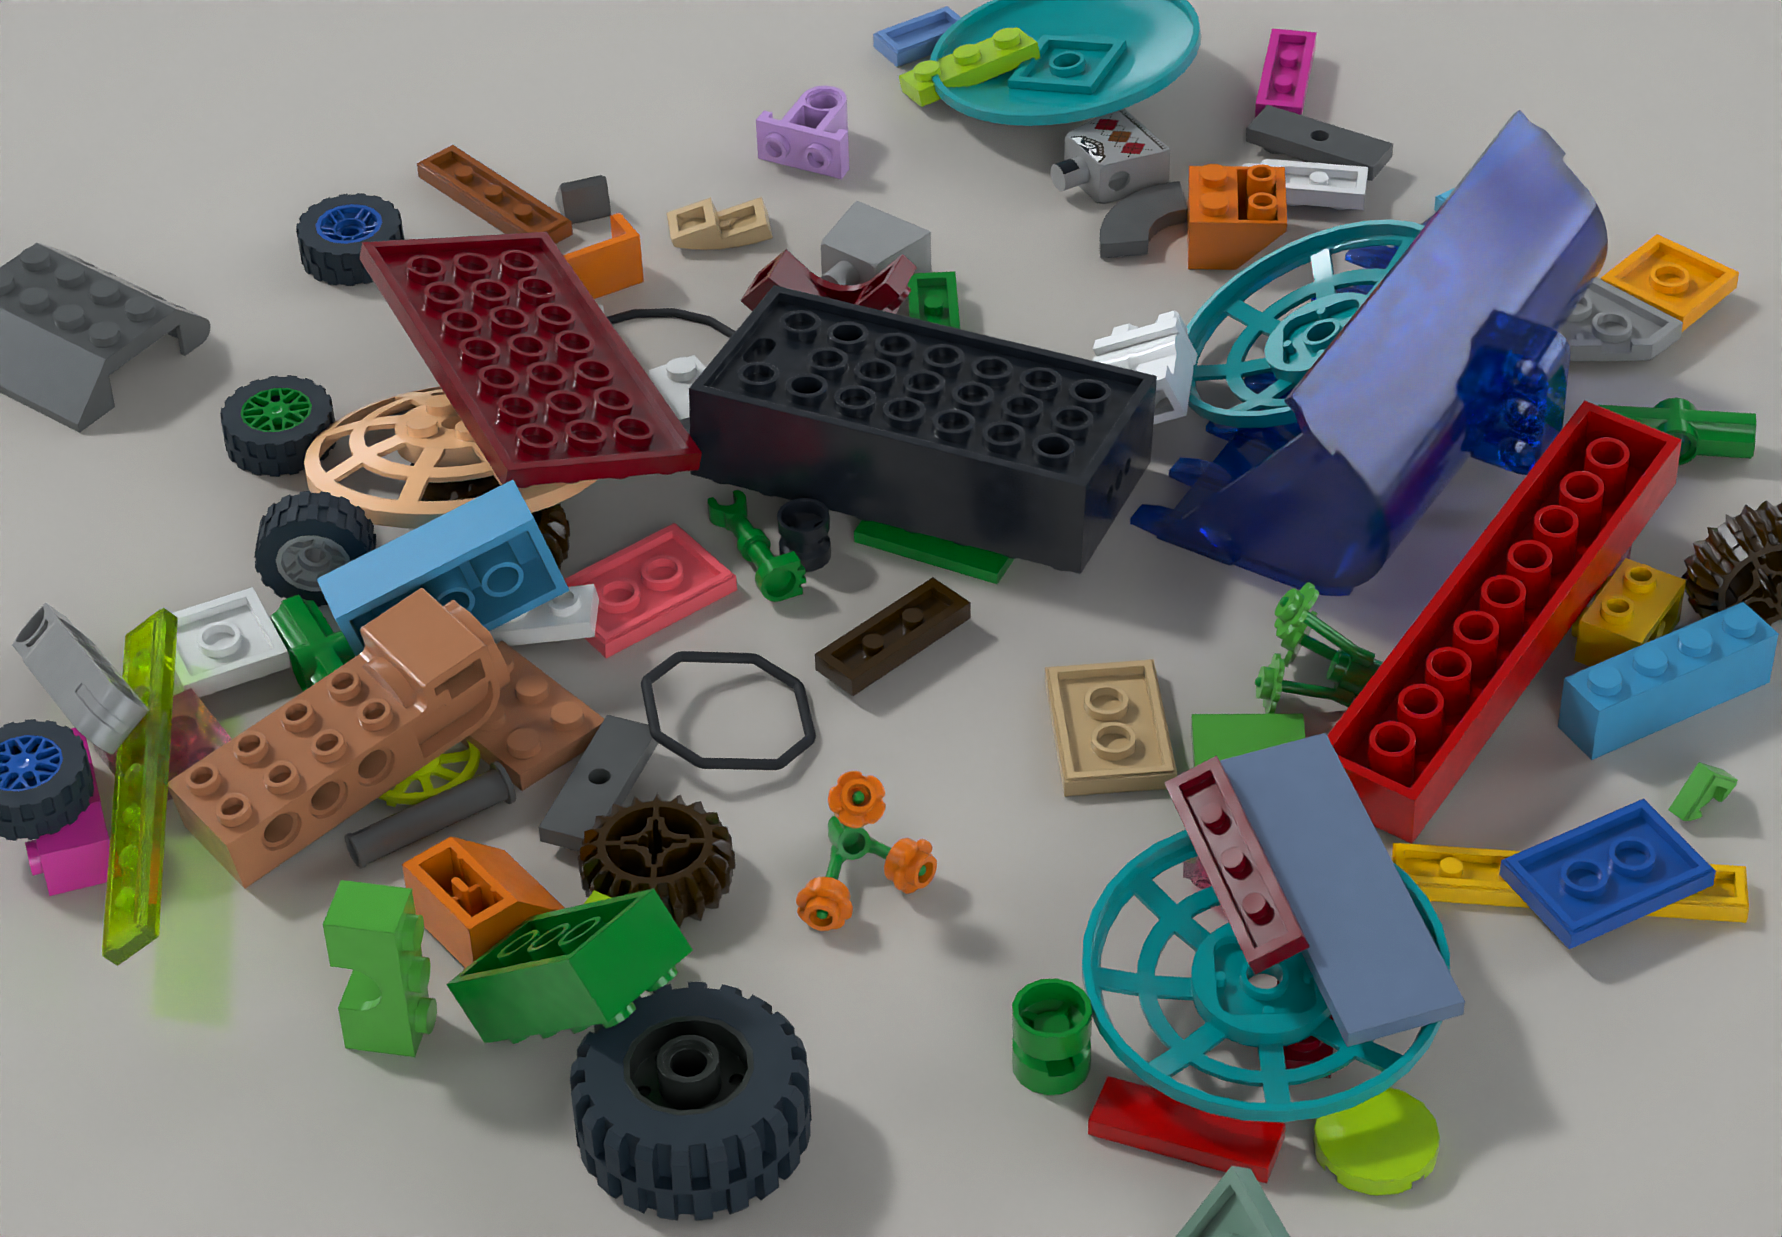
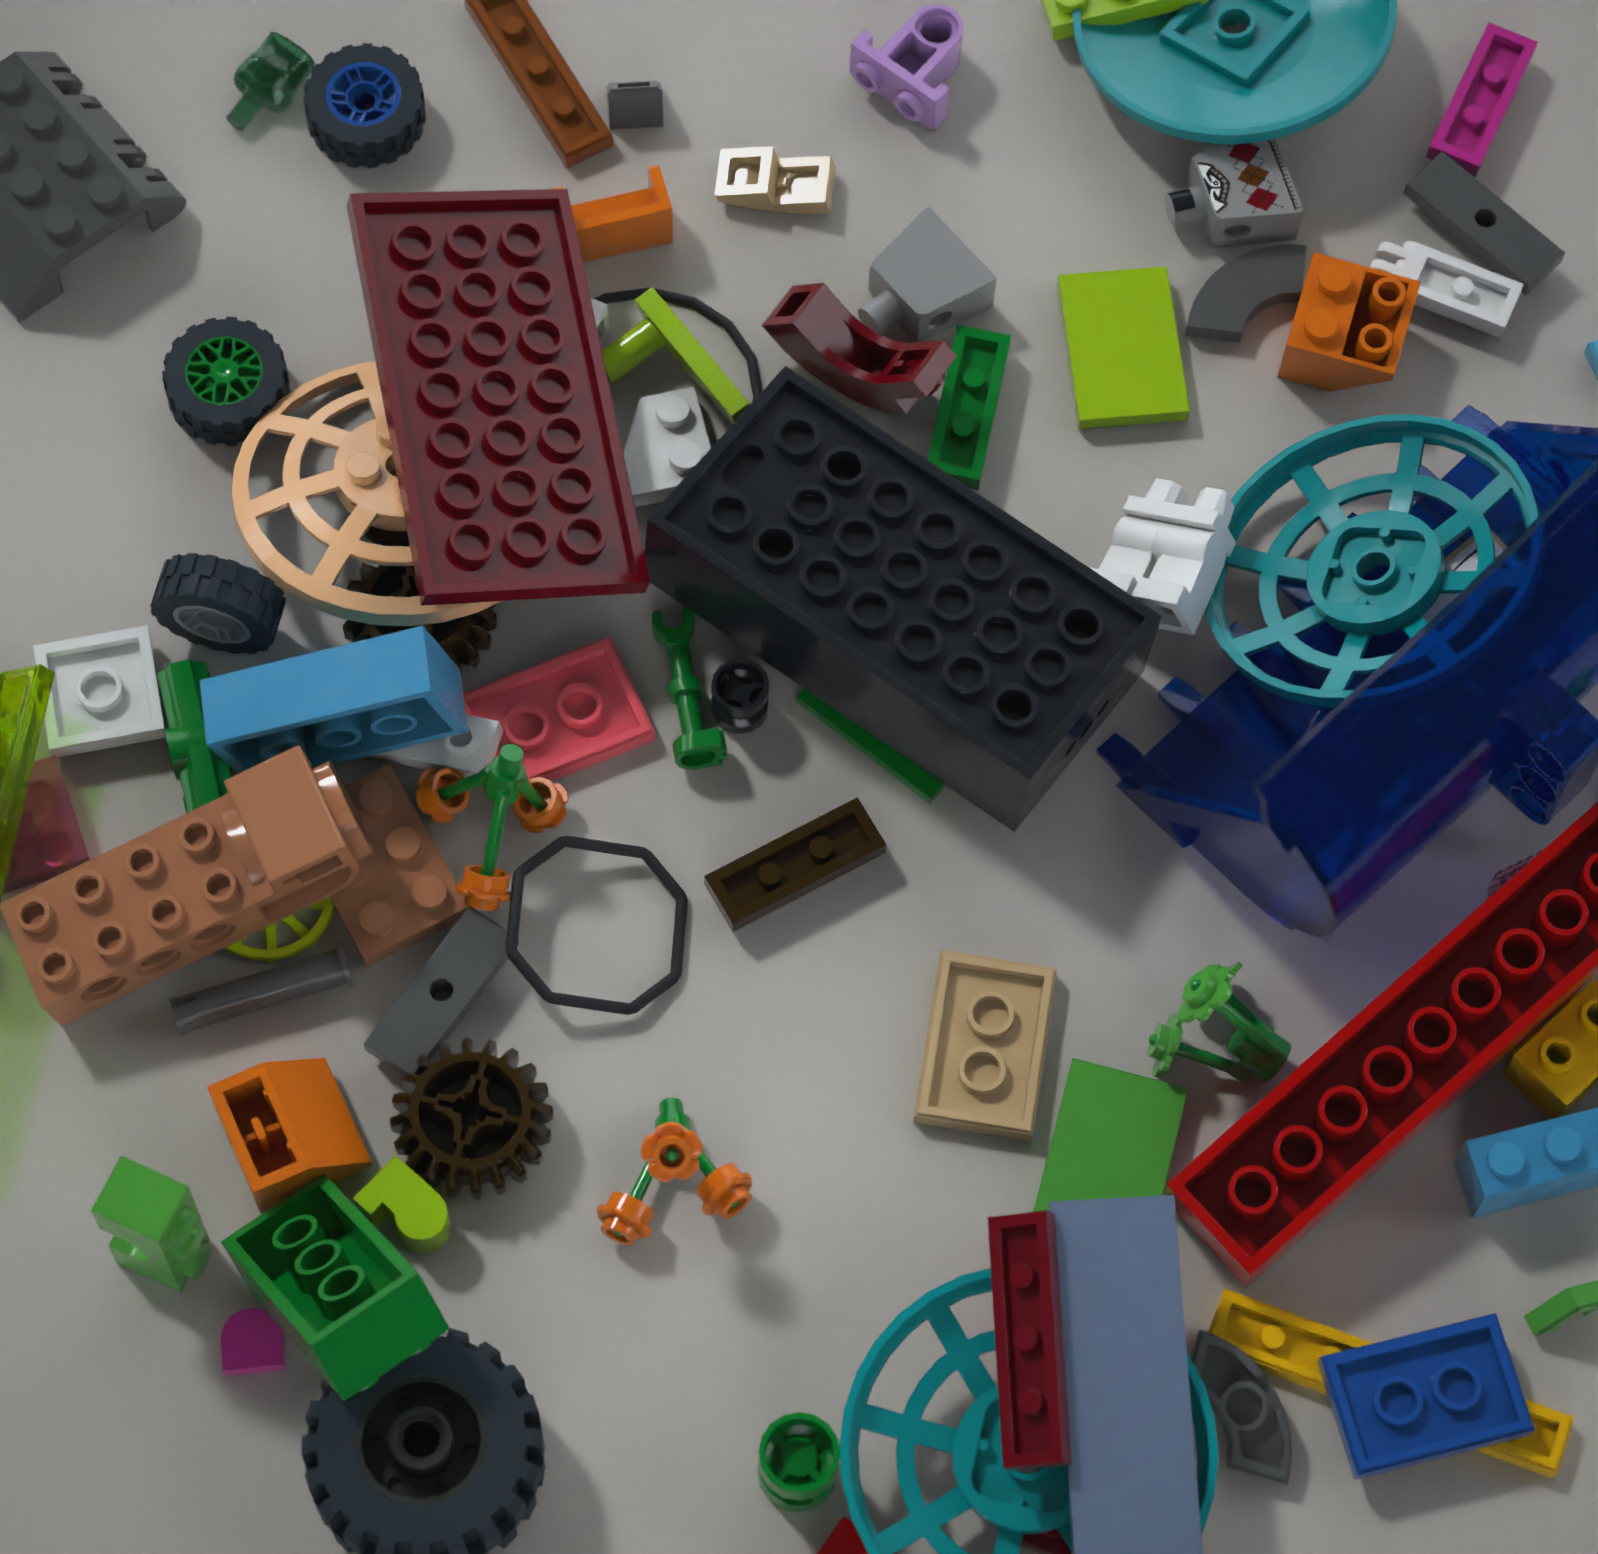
camera: 10 degrees right, 25 degrees up
(262, 238) = (269, 78): none -> clear green piece
(497, 1073) = (252, 1343): none -> dark pink tile
(646, 642) = (504, 781): none -> plant
(672, 327) = (663, 328): none -> lime piece
(1051, 270) = (1122, 347): none -> lime tile
(1470, 931) = (1246, 1407): none -> dark grey tile

